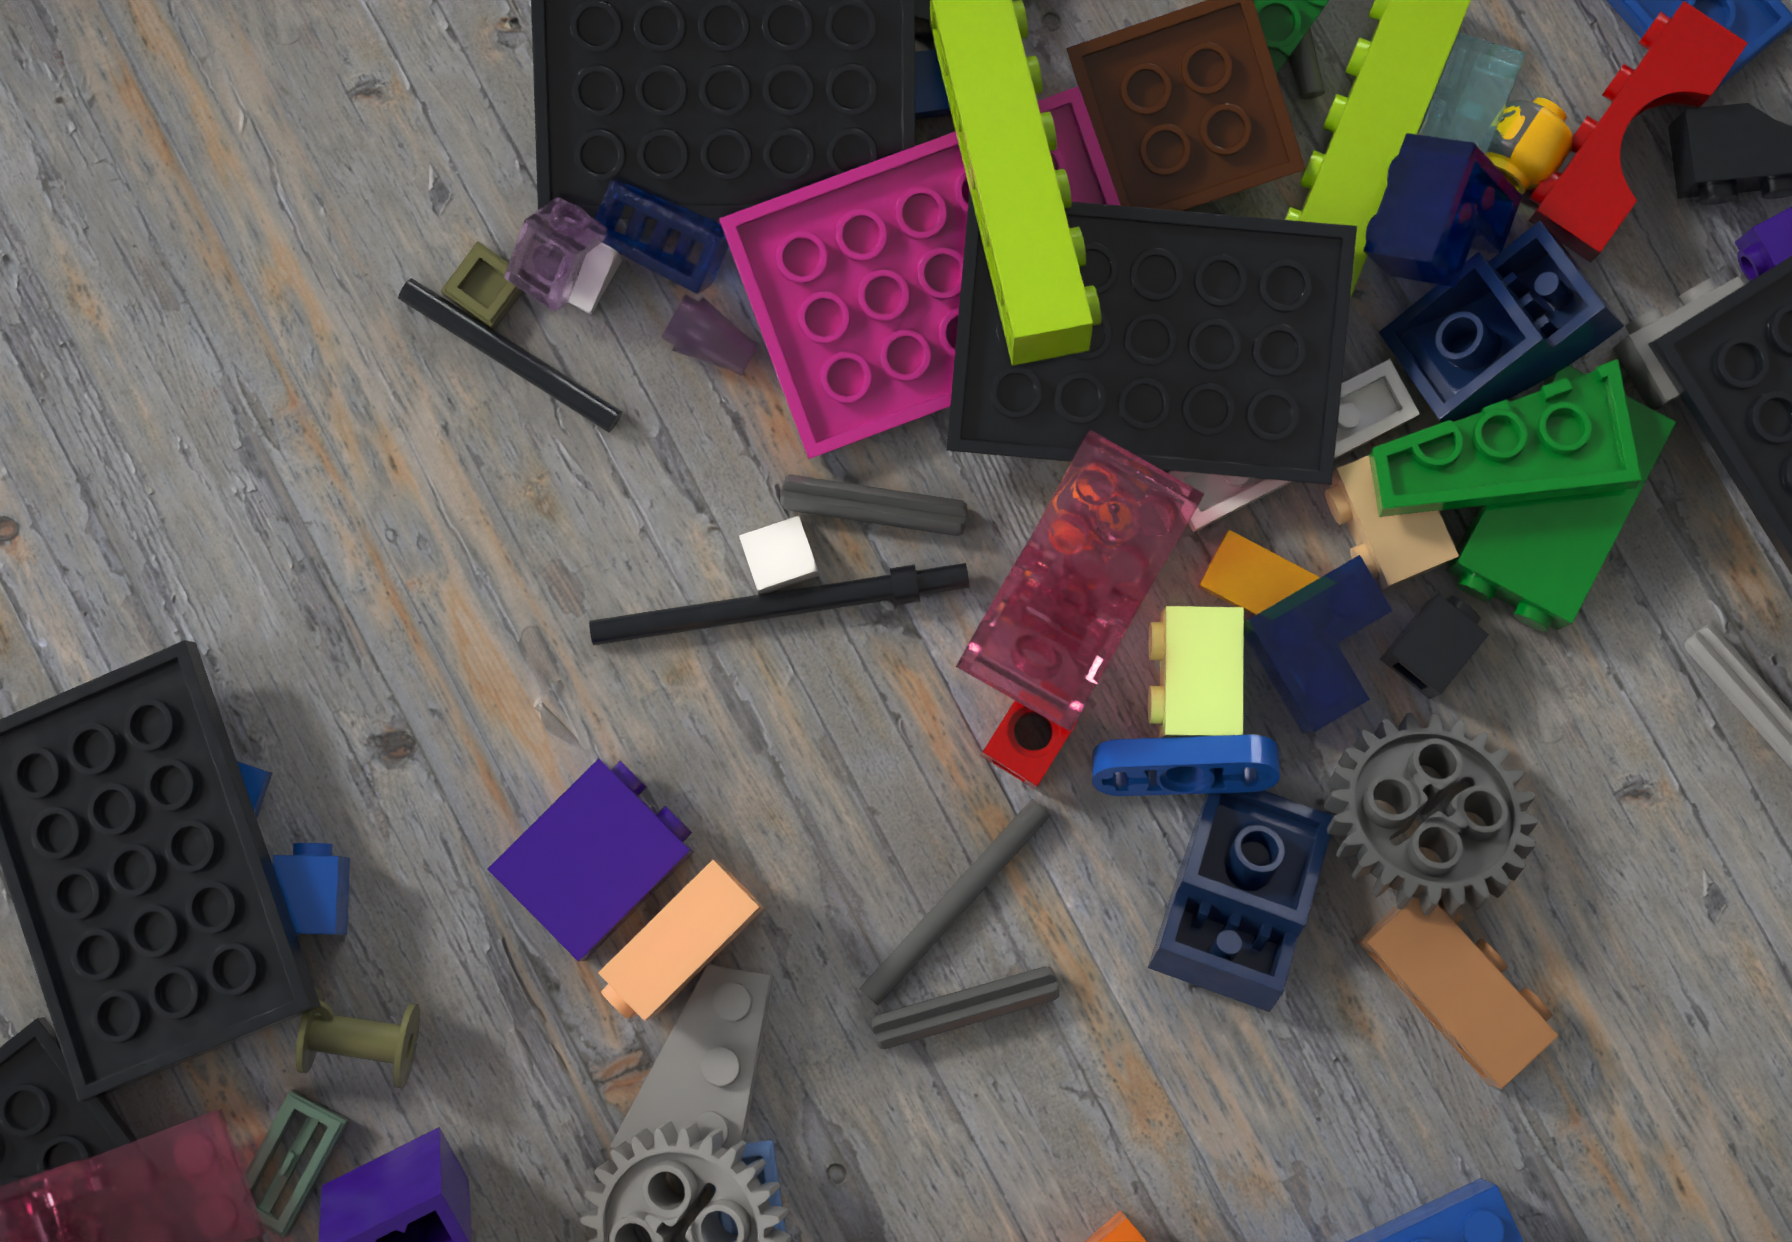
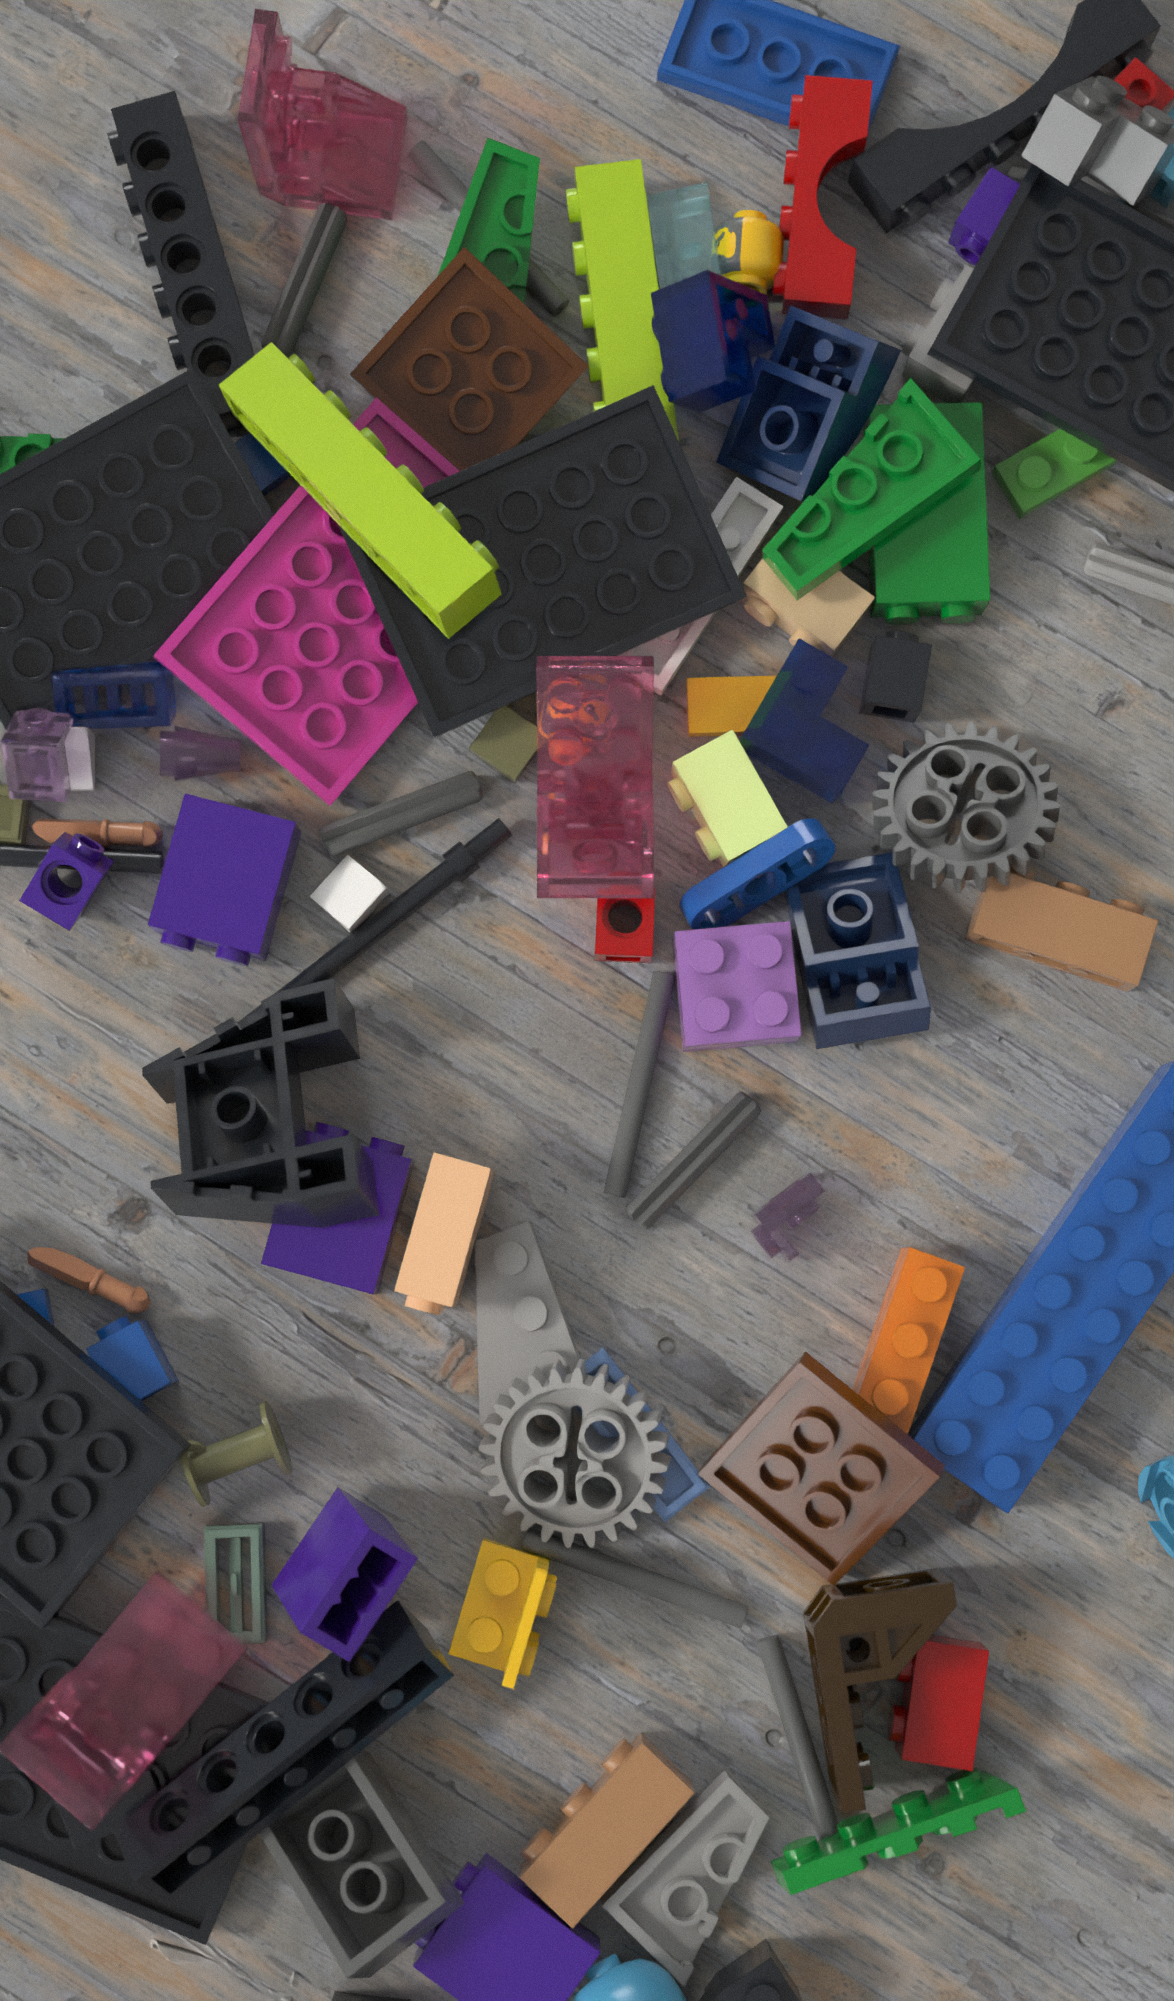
camera: 30 degrees left, 0 degrees up
(315, 783) = (87, 1277): none -> nougat piece
(489, 392) = (54, 898): none -> dark purple brick
(552, 719) = (246, 1119): none -> black wedge
(567, 356) = (104, 833): none -> nougat piece
(665, 473) = (224, 880): none -> dark purple brick
(1015, 494) = (506, 743): none -> olive tile
(1035, 1106) = (790, 1205): none -> clear purple bracket
(1104, 862) = (736, 986): none -> medium lavender brick
(1704, 524) = (1048, 470): none -> bright green plate

